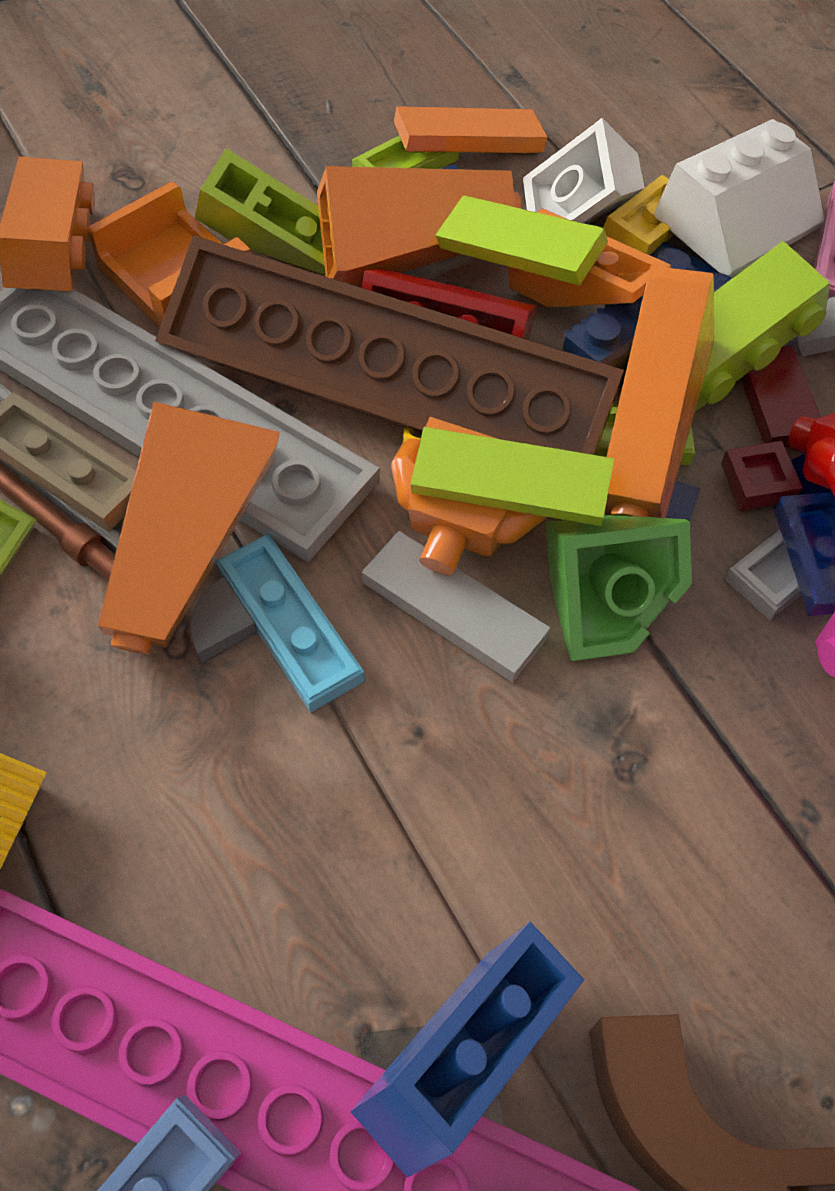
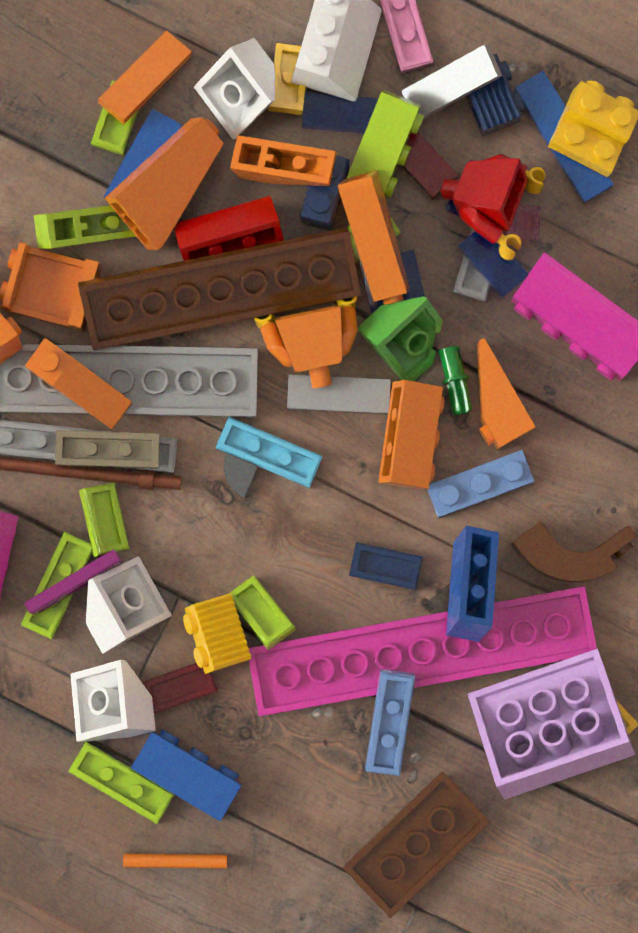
camera: 35 degrees left, 25 degrees up
(70, 847) = (261, 613): none -> lime tile
(93, 352) = (78, 383): none -> orange slope
(181, 511) = (195, 444): orange slope -> none
(340, 917) = (385, 566): none -> dark blue tile
(512, 476) = (335, 330): lime tile -> none
(522, 239) = (244, 175): lime tile -> none
(530, 724) = (411, 434): none -> orange brick
(600, 884) = (480, 483): none -> medium blue plate
(657, 691) = (455, 380): none -> green axle
(712, 787) = (500, 407): none -> orange slope
(760, 474) = (439, 225): dark red plate -> none

